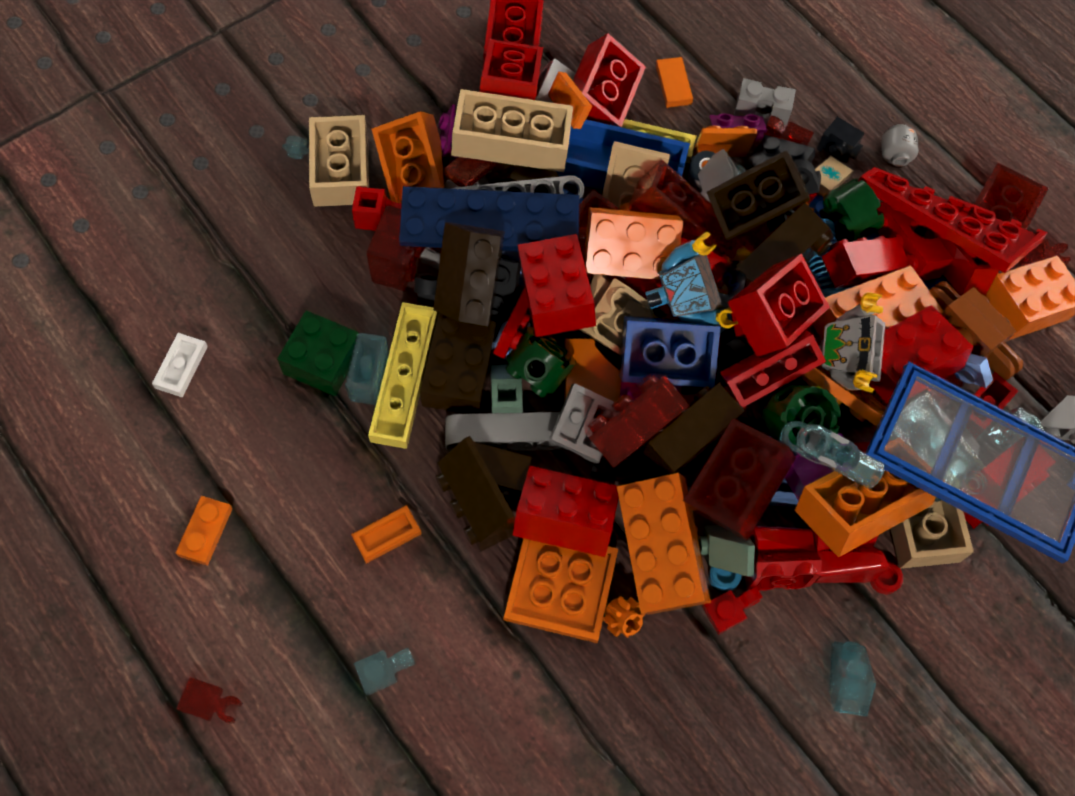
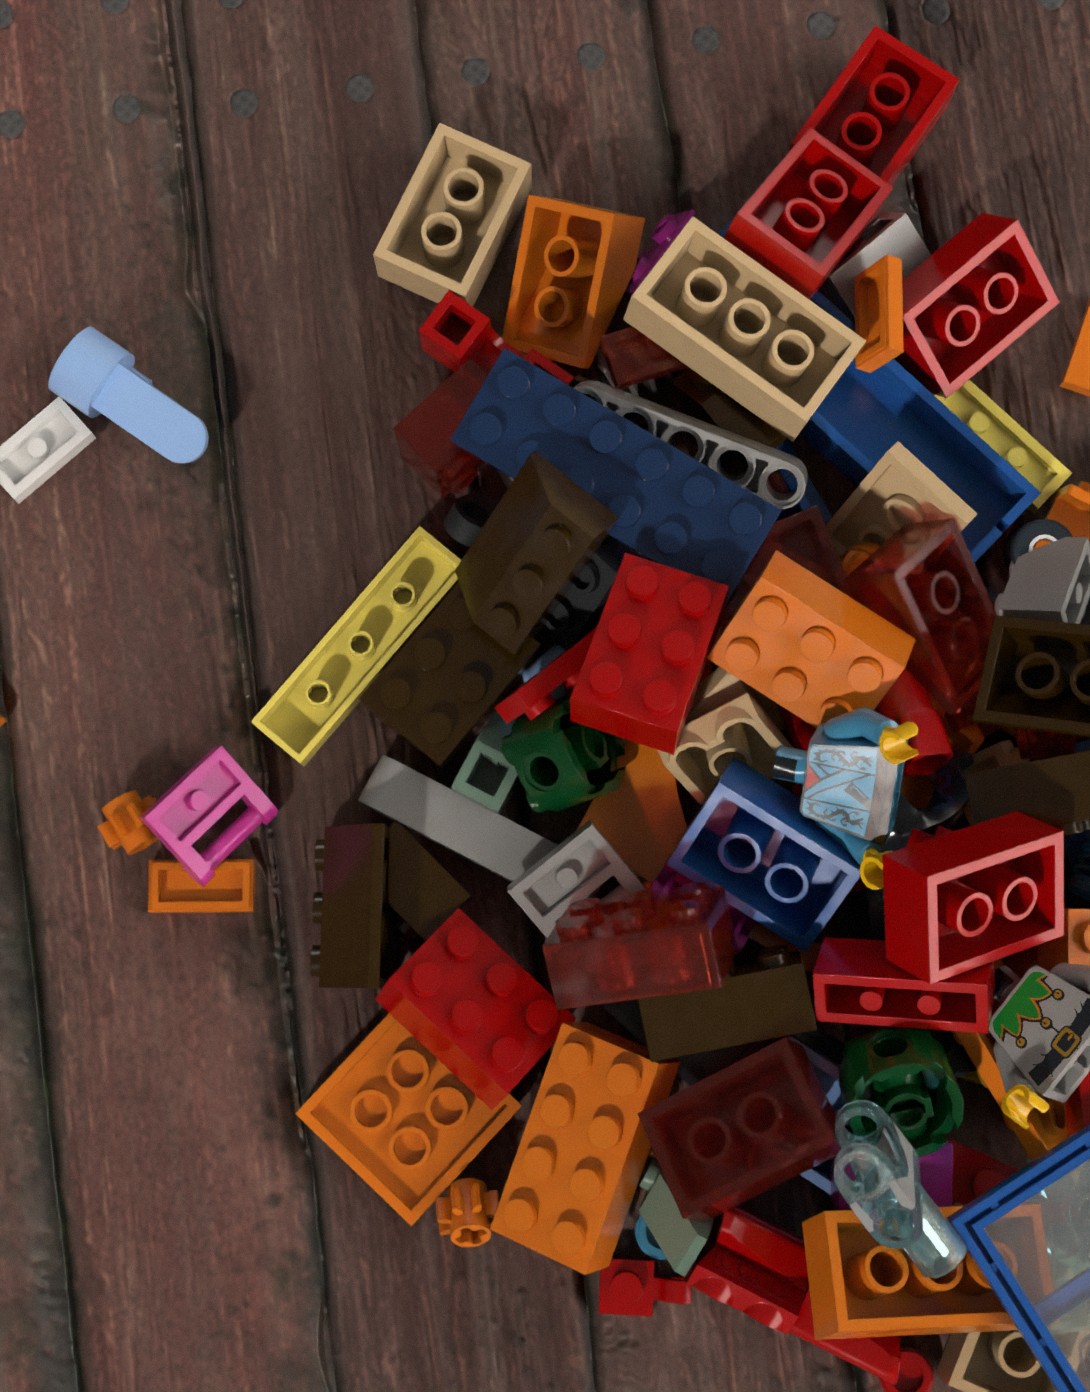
camera: 35 degrees right, 15 degrees up
(196, 312) = (101, 379): none -> light blue piece
(296, 147) = (401, 154): clear light blue plate -> none
(318, 353) = (252, 544): dark green brick -> none
(331, 518) = (124, 825): none -> orange gear
(363, 487) = (198, 803): none -> dark pink plate
(367, 368) = (306, 611): clear light blue brick -> none
(378, 670) = (83, 1086): clear light blue plate -> none

